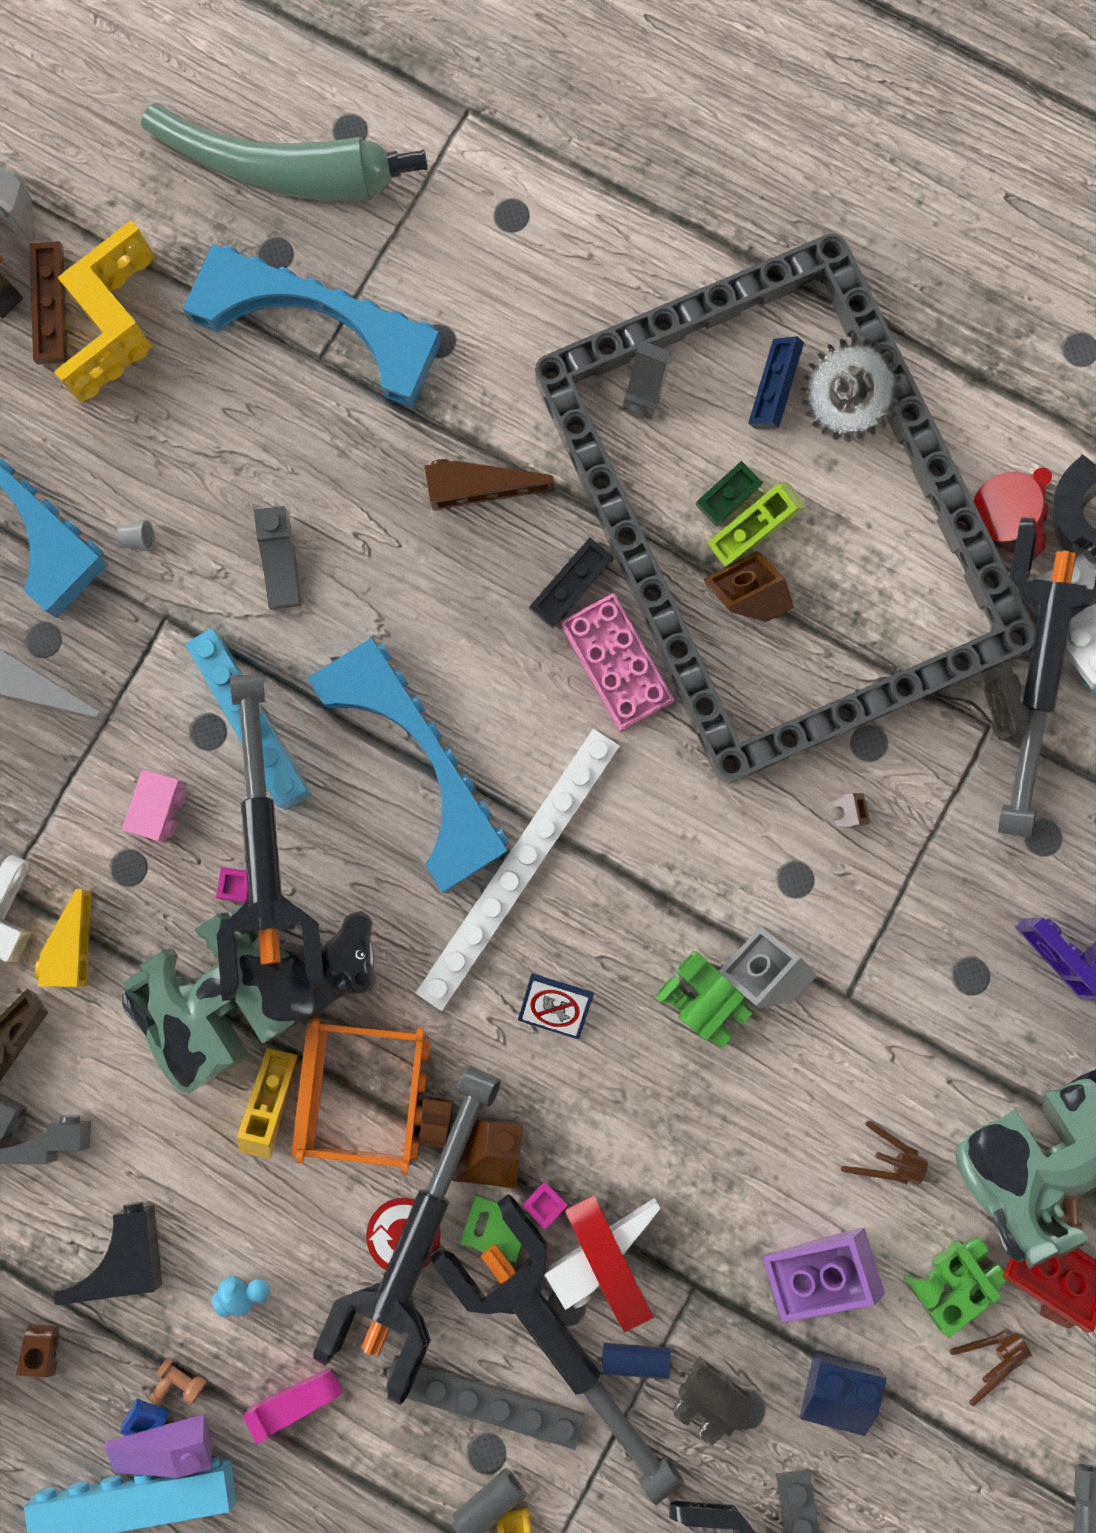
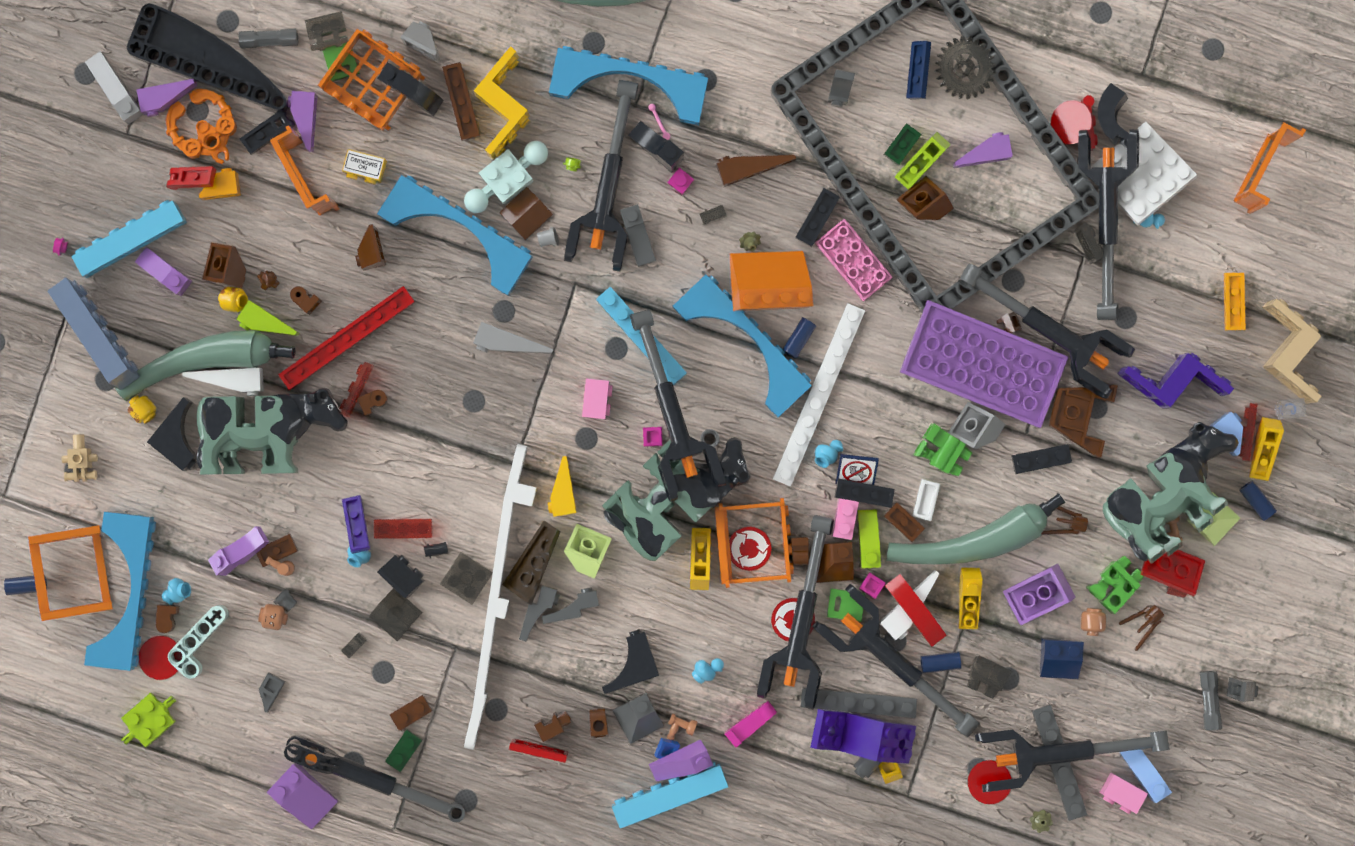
camera: 20 degrees left, 5 degrees up
(84, 1052) = (587, 550): none -> yellowish green slope
(89, 428) = (506, 177): none -> light aqua brick
(110, 1353) = (638, 717): none -> dark grey slope
(111, 493) = (526, 213): none -> reddish brown slope
(200, 429) = (572, 164): none -> lime plate
(227, 519) = (601, 217): none -> black piece
(313, 901) = (712, 432): none -> light grey piece
(340, 427) = (658, 147): none -> black arch
(355, 1101) = (749, 548): none -> sticker
(357, 414) = (652, 107): none -> bright pink hinge
(365, 487) = (680, 181): none -> dark pink plate
(404, 547) = (712, 214): none -> clear smoke piece
(455, 600) = (750, 241): none -> olive plant
(473, 669) = (770, 281): none -> orange slope
(476, 1471) = (863, 736): none -> dark purple bracket
(504, 769) = (799, 337): none -> dark blue piece
(512, 969) = (827, 454): none -> medium azure animal
(520, 1083) = (845, 519): none -> bright pink brick
(554, 1125) = (868, 539): none -> lime slope
(561, 1046) = (864, 493): none -> black plate
(618, 1107) = (904, 522): none -> reddish brown plate
(662, 1077) = (926, 500): none -> white tile
(705, 1257) = (969, 597): none -> yellow slope
(767, 1167) = (999, 537): none -> sand green animal
(798, 869) = (983, 364): none -> medium lavender plate
(866, 1045) = (1041, 459): none -> black plate
(869, 528) = (991, 150): none -> medium lavender slope
(908, 1342) = (1093, 621): none -> nougat head
(932, 979) = (1072, 416): none -> reddish brown wing
(963, 872) = (1079, 347): none -> black piece

